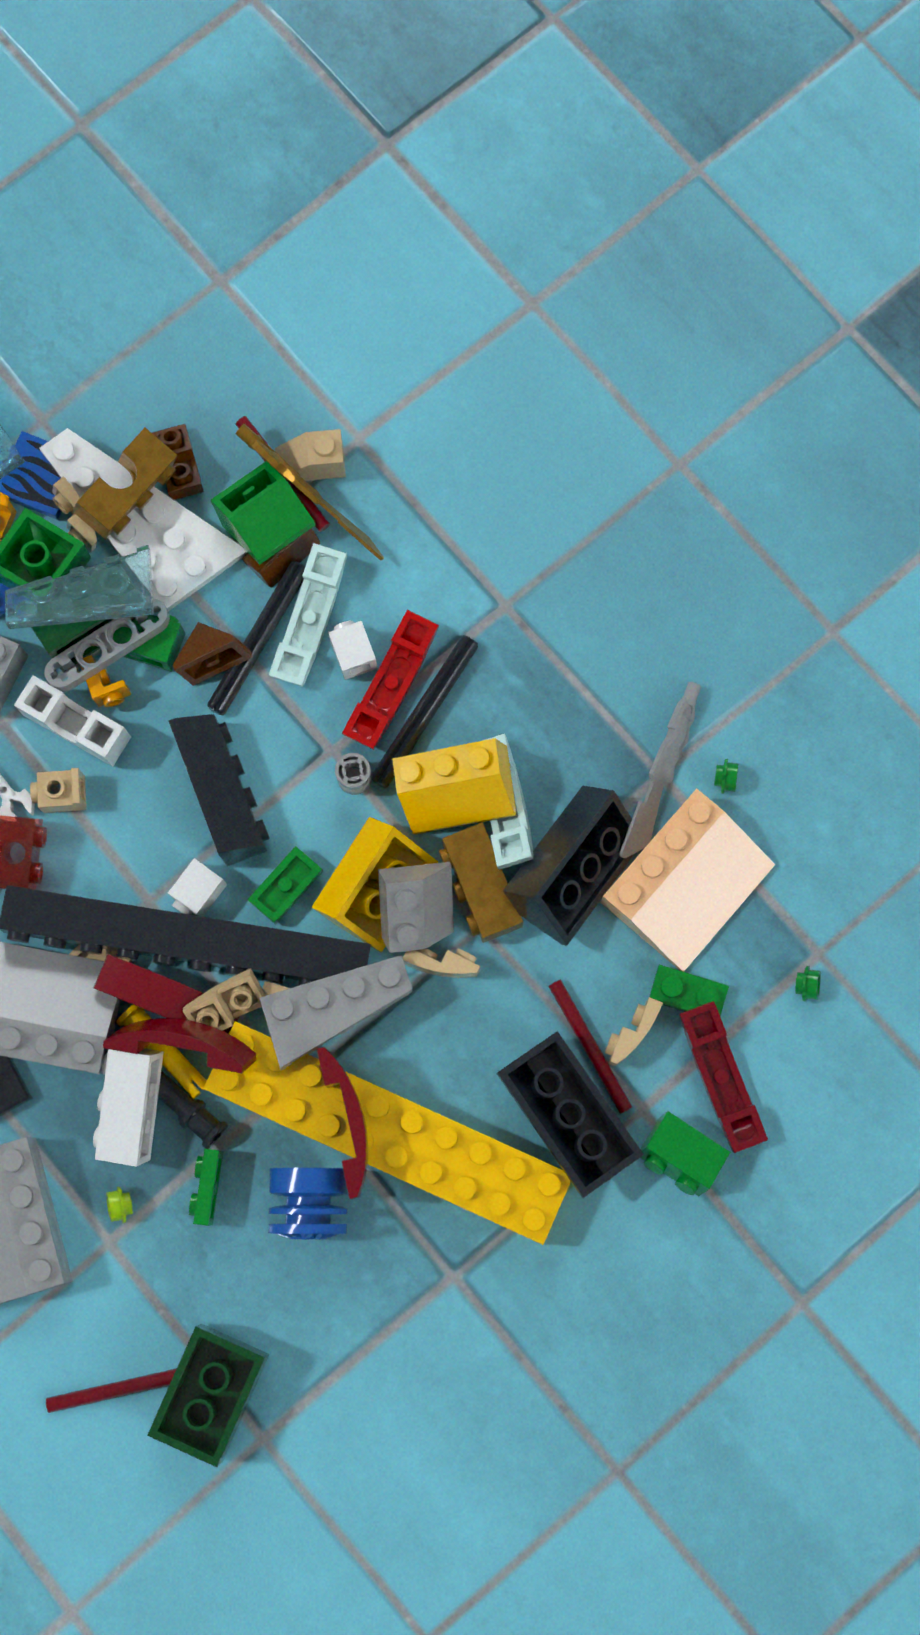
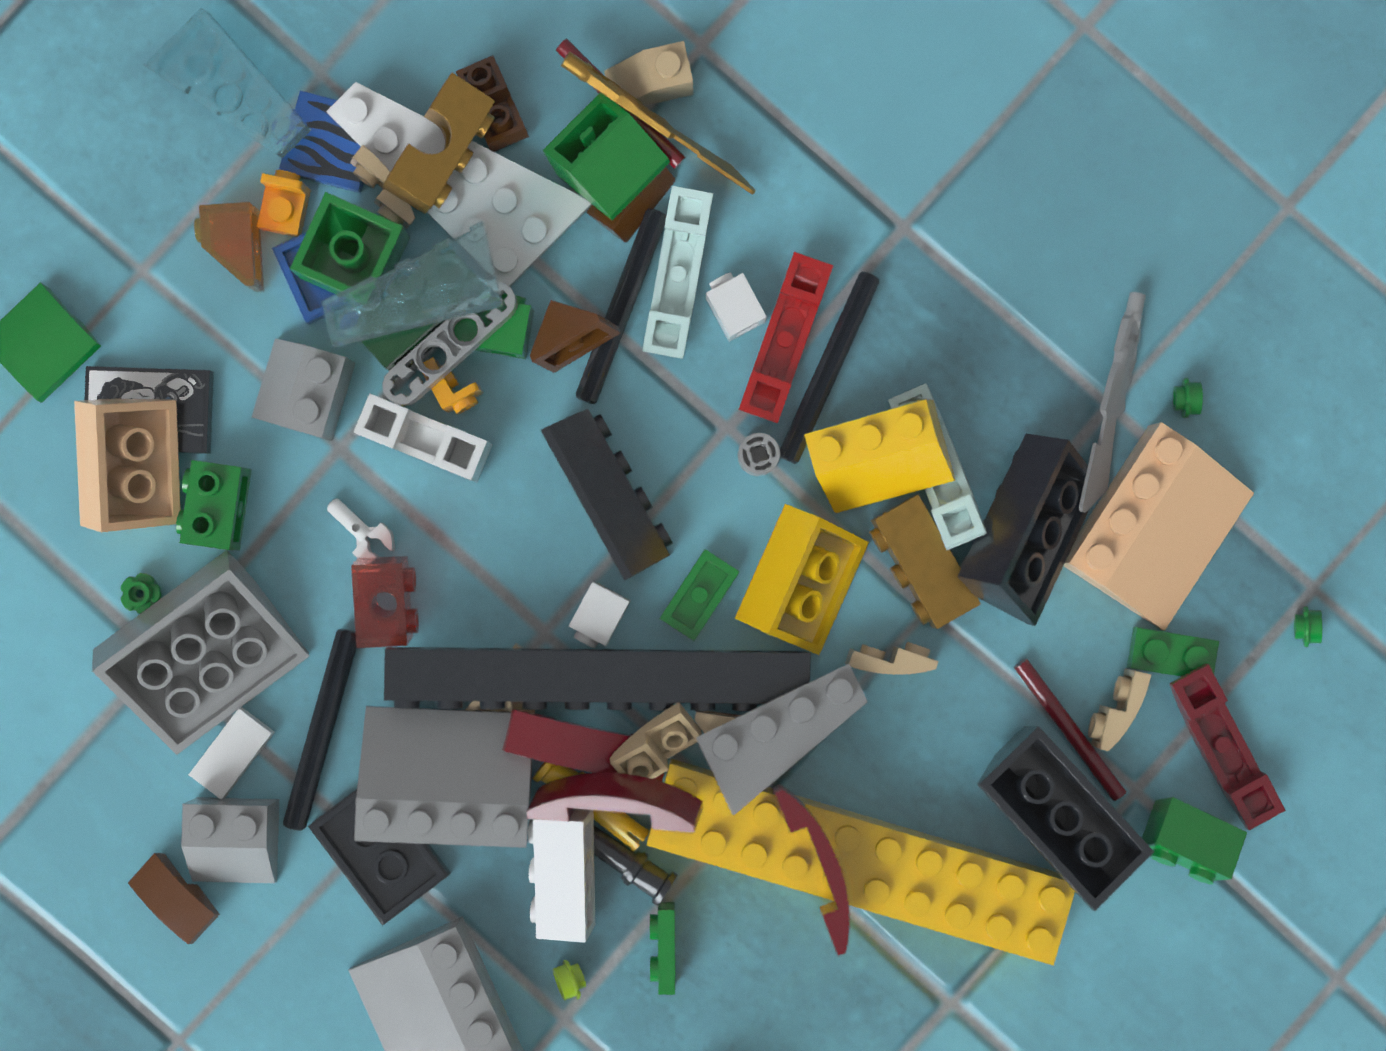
camera: 10 degrees left, 10 degrees up
(69, 798) = (436, 520): tan brick -> none
(307, 1201) = (784, 961): blue wheel -> none
(415, 905) = (854, 603): light grey slope -> none

